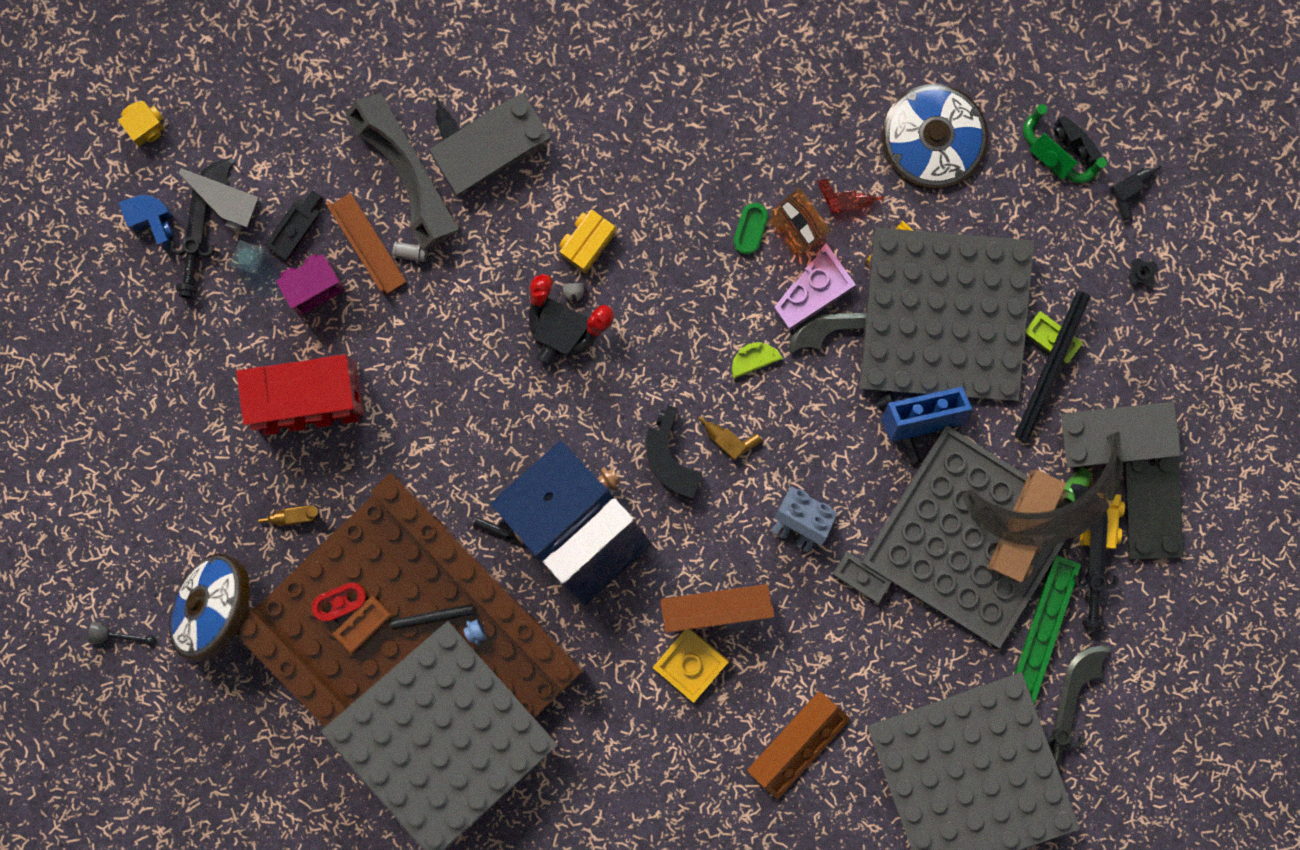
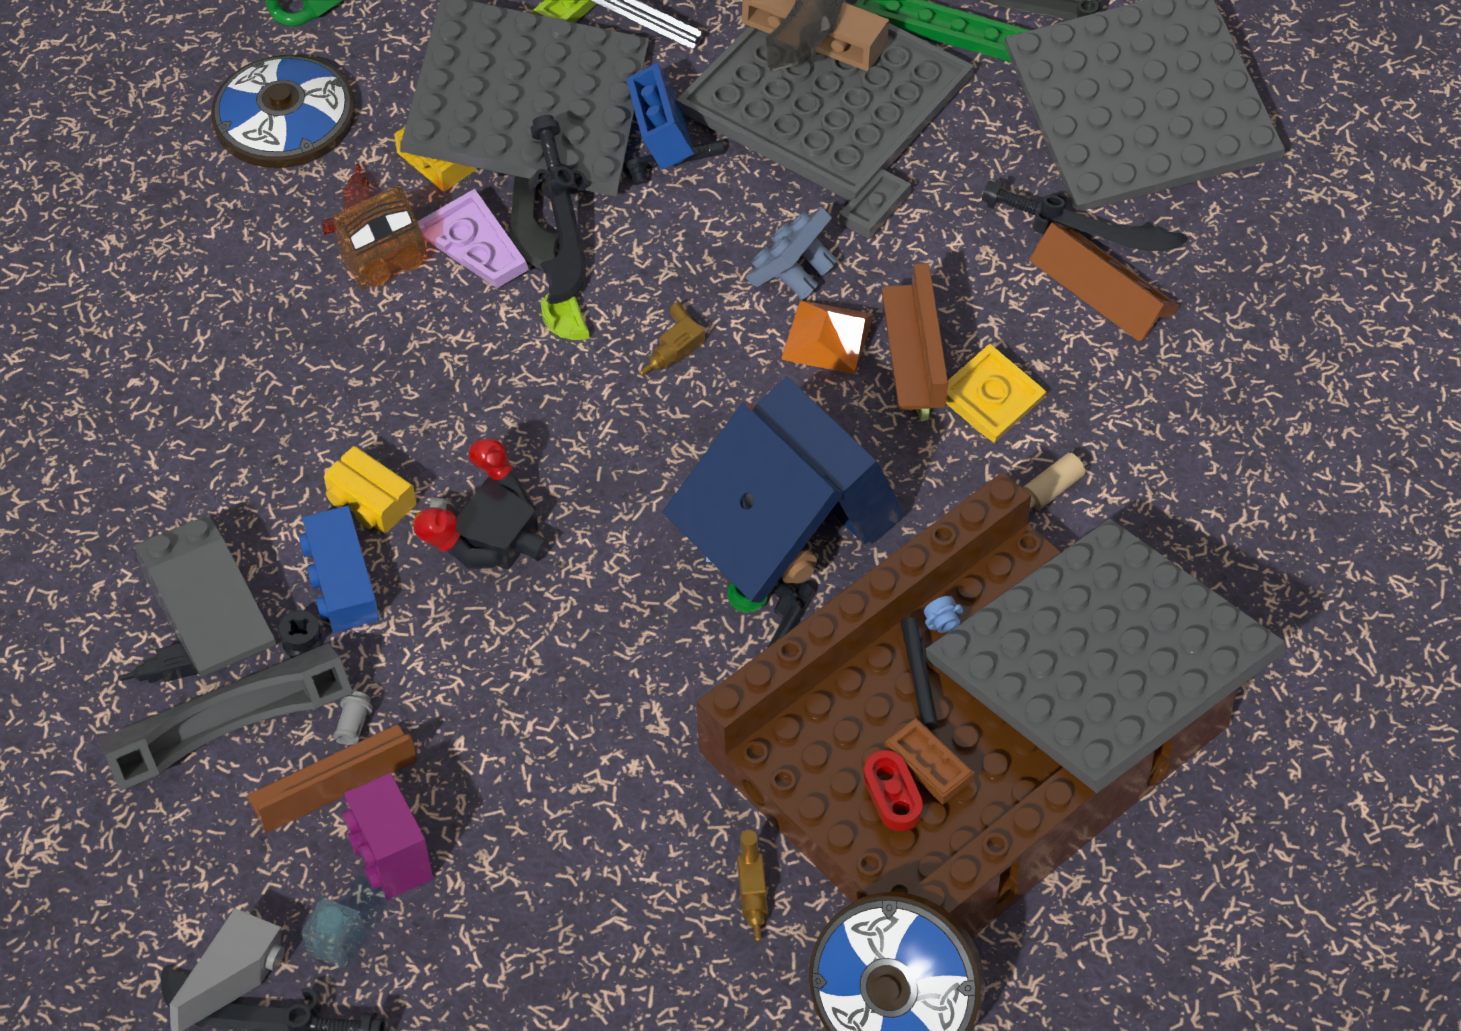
camera: 80 degrees left, 30 degrees down
(294, 226) = (287, 872): black hinge -> none
(300, 394) = (563, 841): red container -> none
(474, 214) = (295, 622): none -> black wheel
(522, 228) = (338, 569): none -> blue brick
(614, 704) = (1054, 480): none -> tan cylinder
(669, 472) = (695, 413): black arch -> none
(741, 546) = (827, 337): none -> orange slope
(750, 228) = (378, 309): green tile -> none
(786, 359) = (568, 268): none -> black sword
(837, 774) = (1052, 211): none -> black sword

